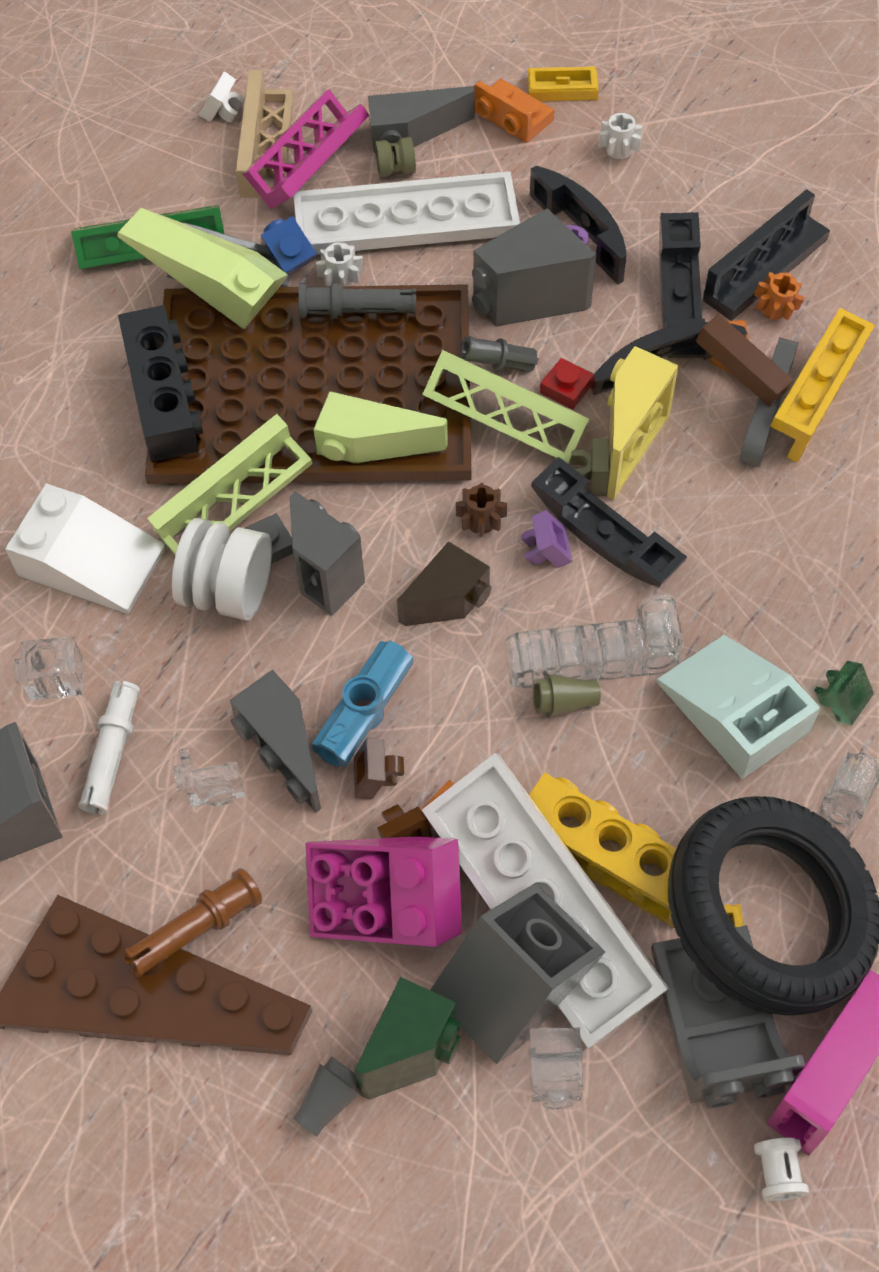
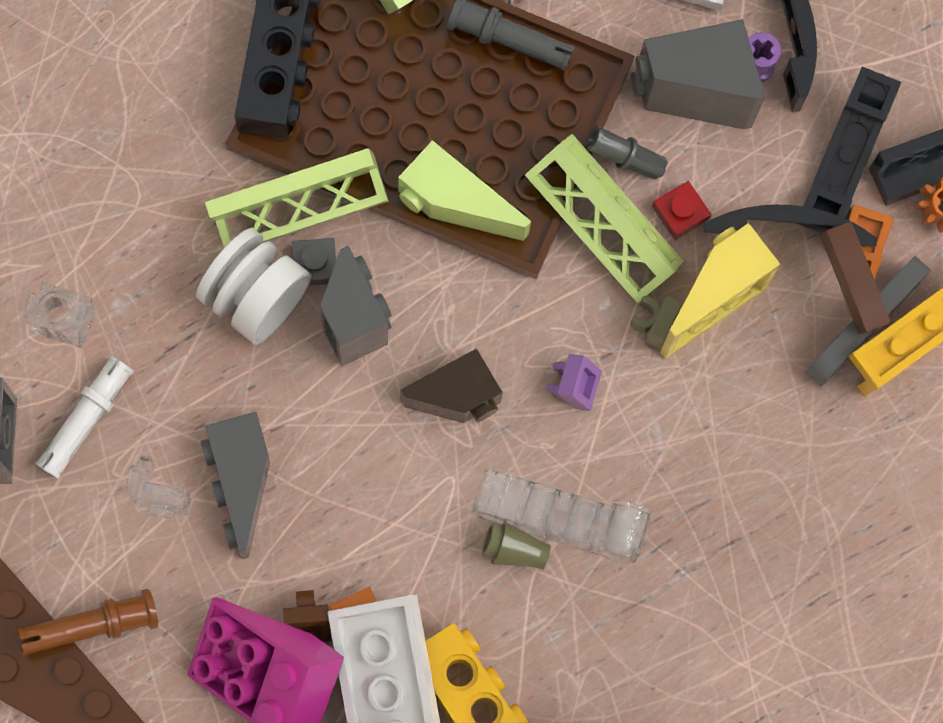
camera: 15 degrees right, 15 degrees up
(83, 550) = (139, 202): white slope -> none
(351, 723) = (350, 458): dark azure piece -> none
(375, 769) = (308, 546): reddish brown tile -> none
(481, 509) = (520, 312): reddish brown gear -> none
(602, 528) = (637, 390): black slope -> none
(740, 703) = (667, 625): light aqua slope -> none
(847, 692) = (775, 661): clear green tile -> none

